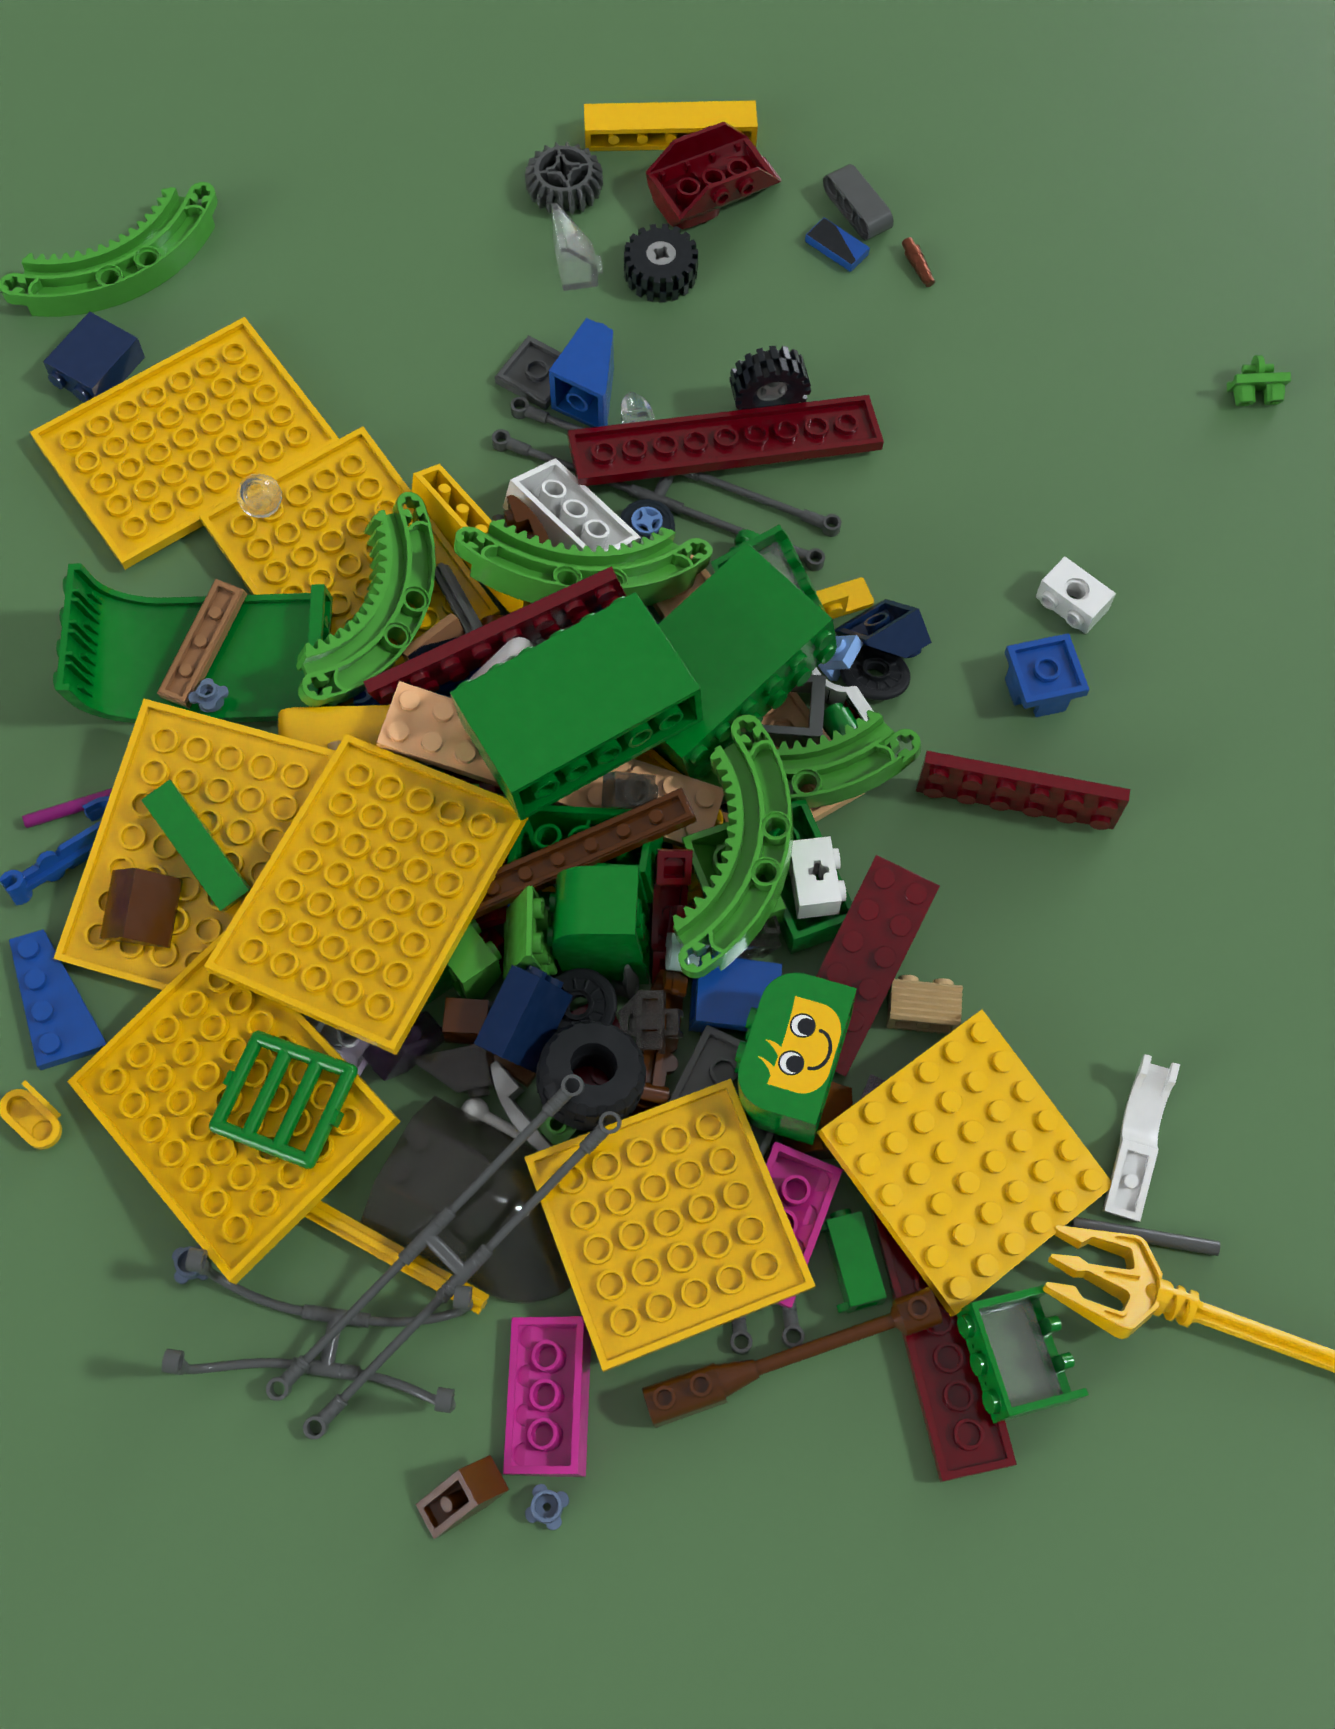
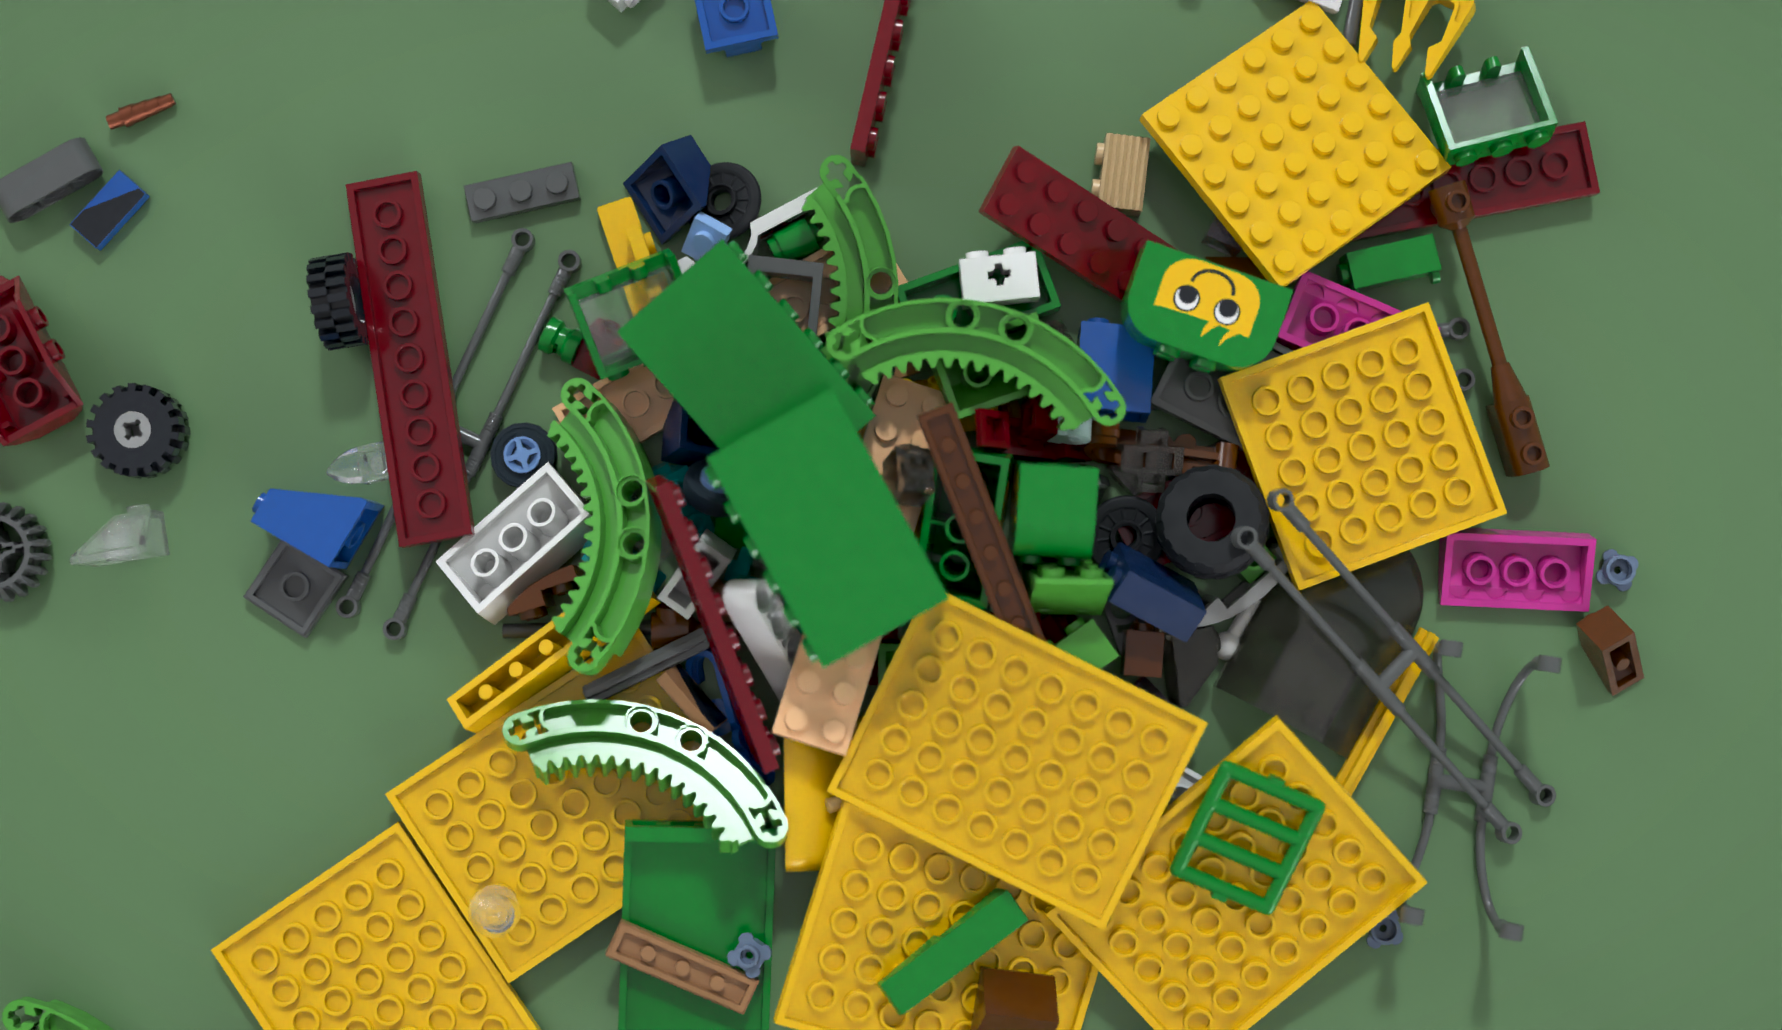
camera: 90 degrees left, 20 degrees up
(872, 524) = (522, 192): none -> dark grey plate

